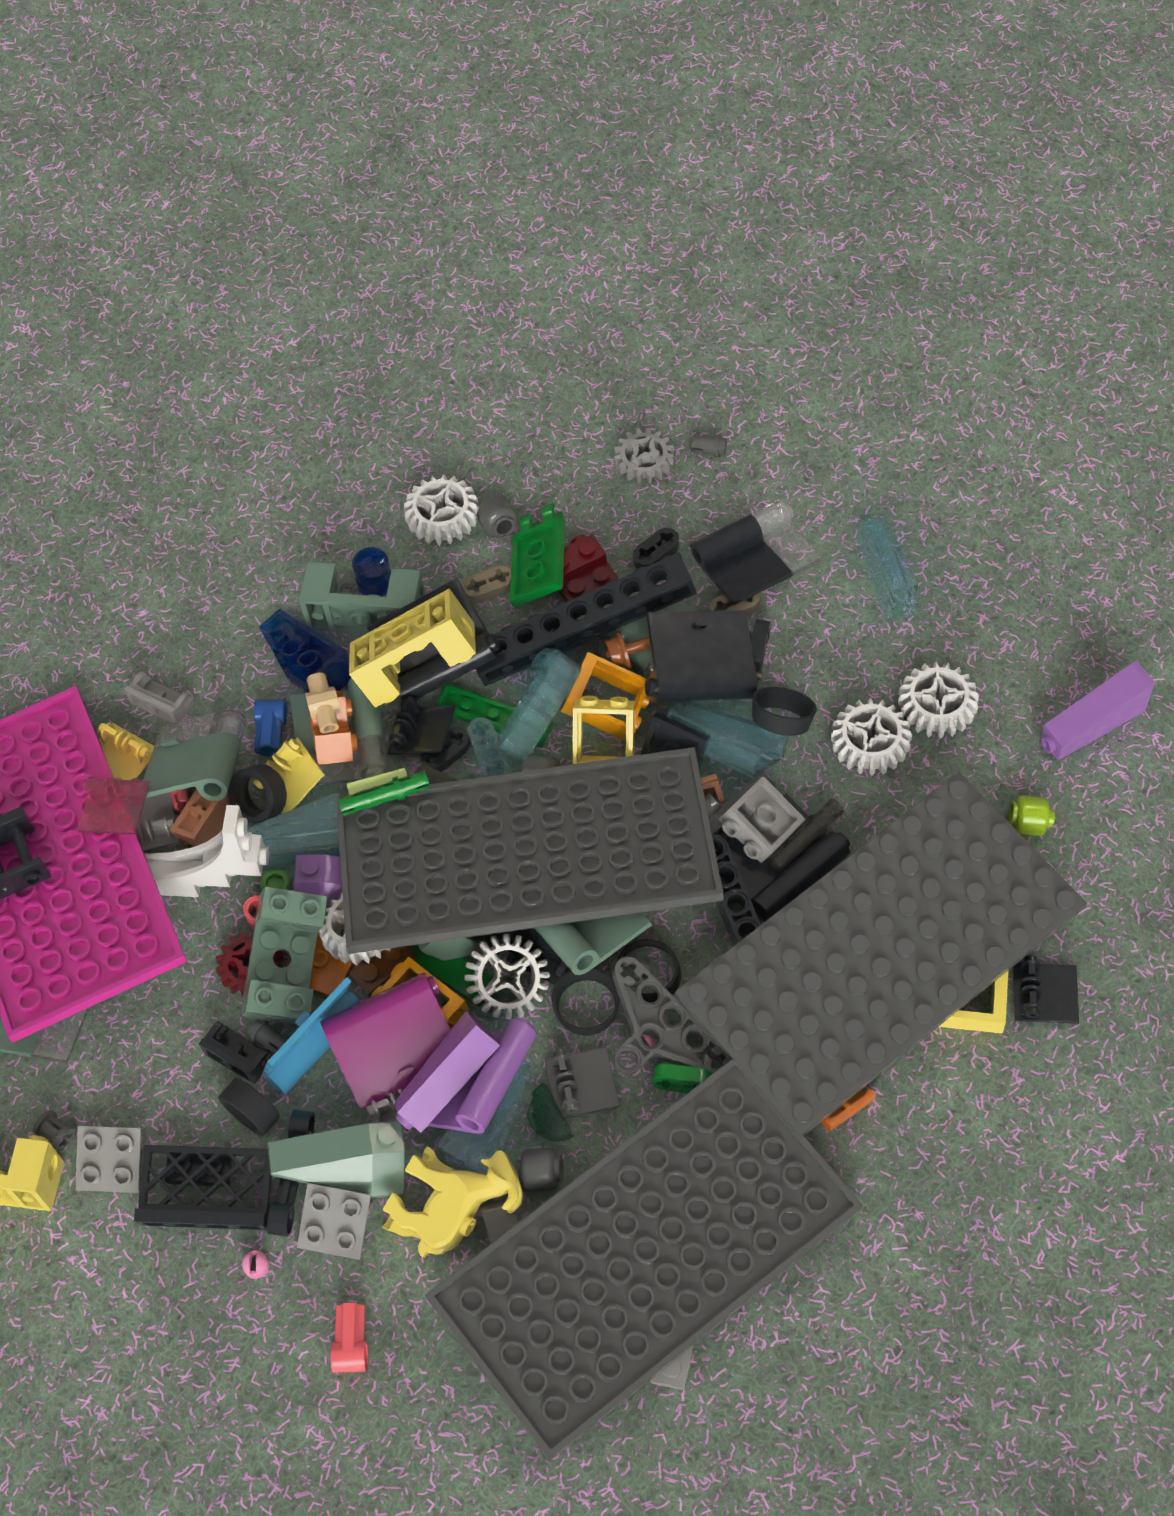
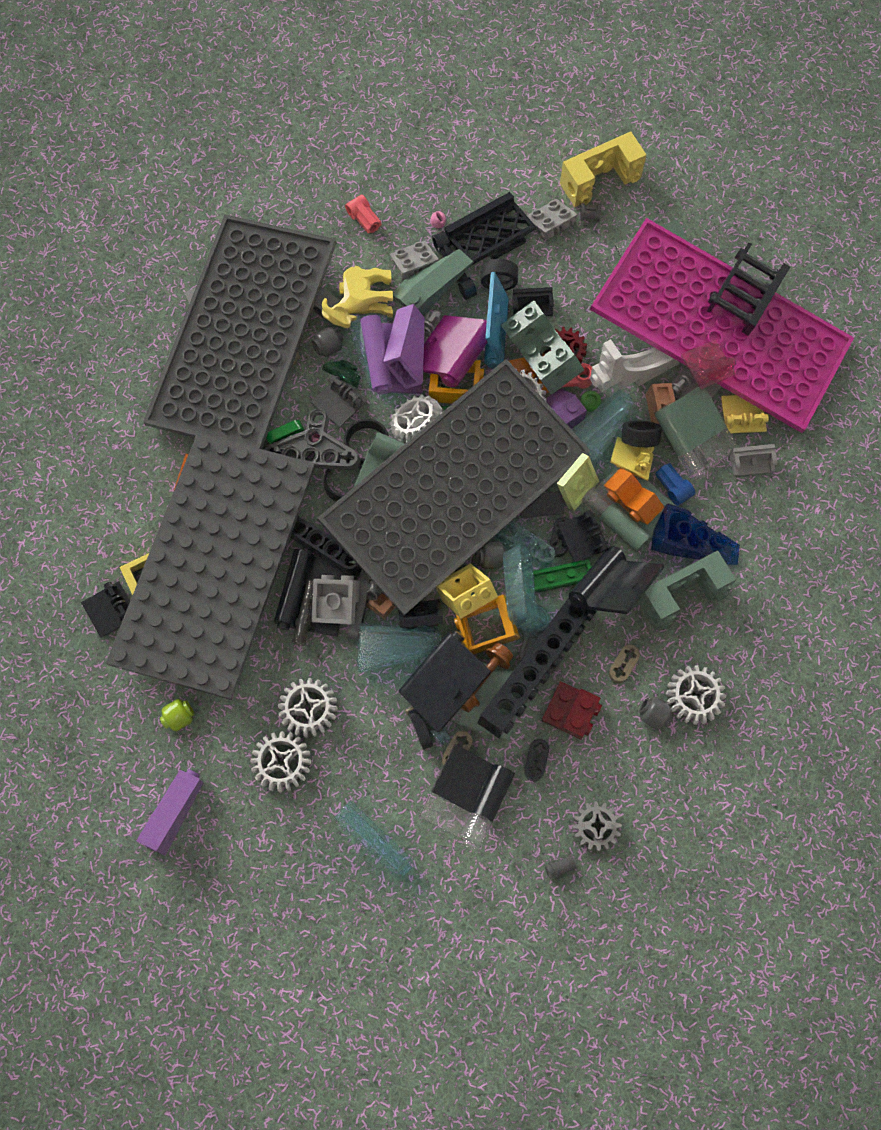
camera: 140 degrees right, 10 degrees up
(322, 703) = (643, 493): tan axle -> none
(371, 571) = (698, 617): clear blue wheel -> none
(377, 654) = (620, 563): light yellow plate -> none
(383, 793) = (557, 470): green pin -> none
(537, 557) = (604, 695): green tile -> none
(784, 699) = (377, 703): black tyre -> none

